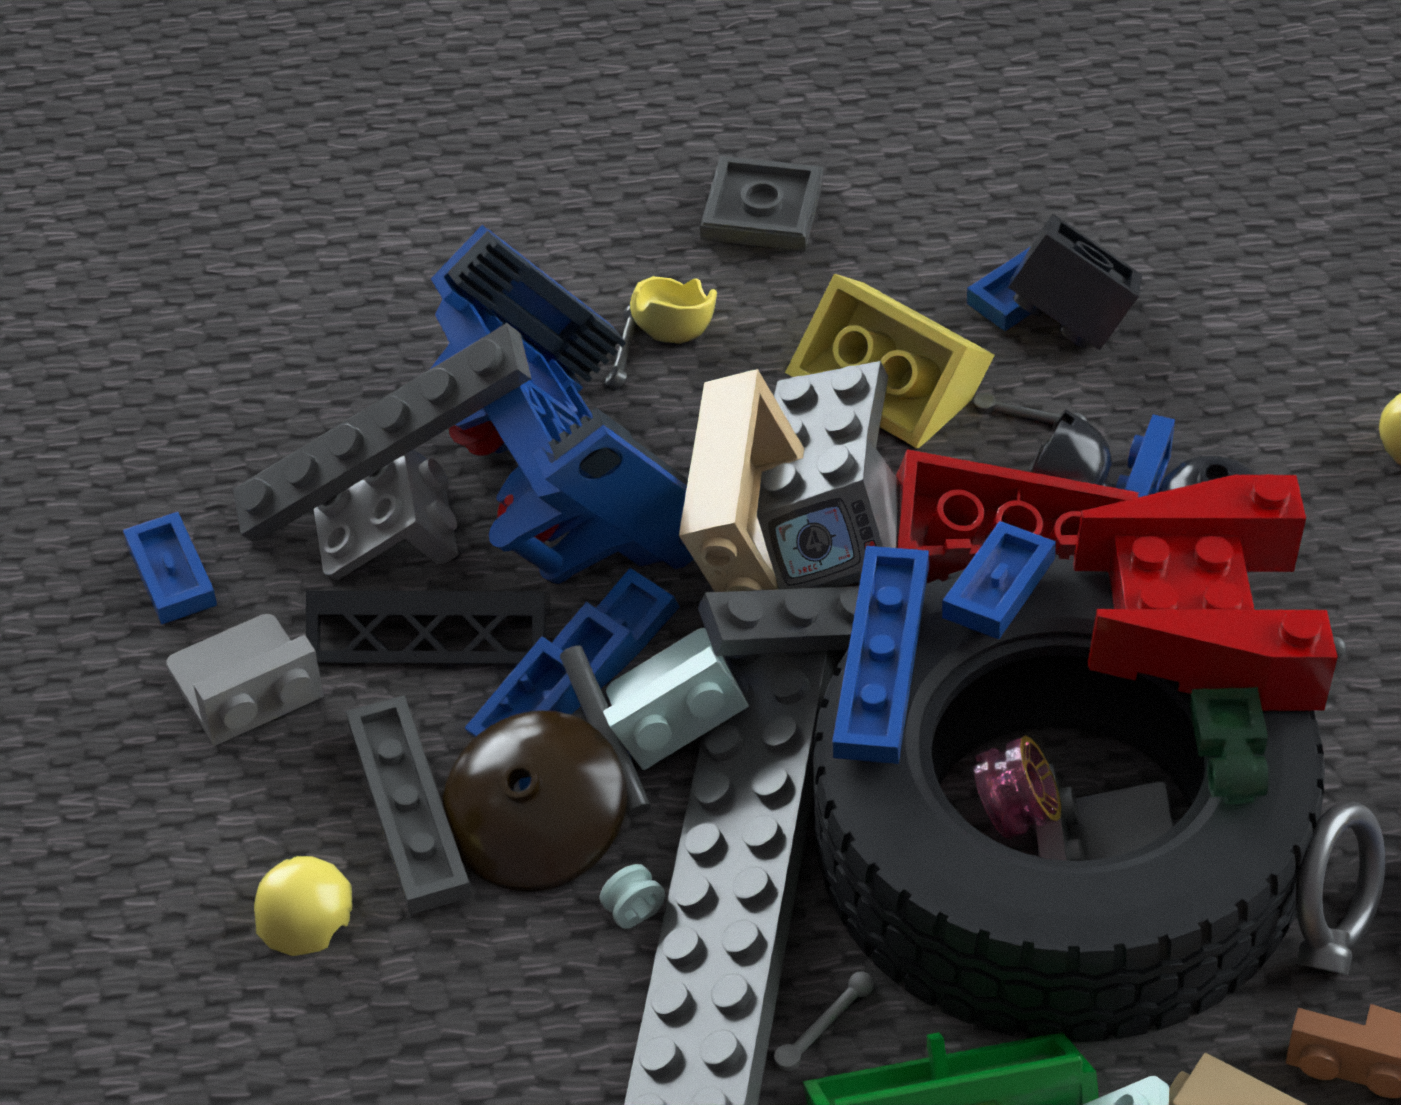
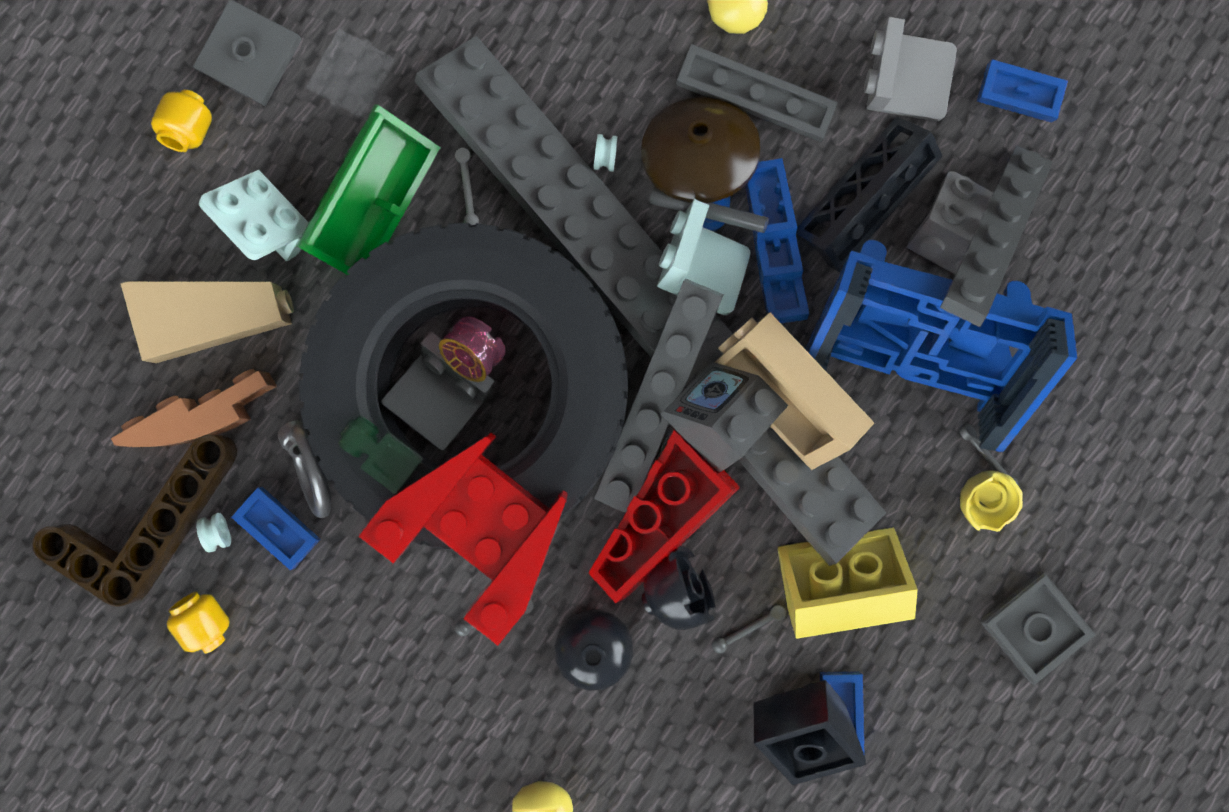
camera: 130 degrees right, 40 degrees up
(881, 655) = (587, 334): blue plate -> none
(998, 580) = (582, 437): blue plate -> none
(1149, 457) = (655, 653): blue plate -> none

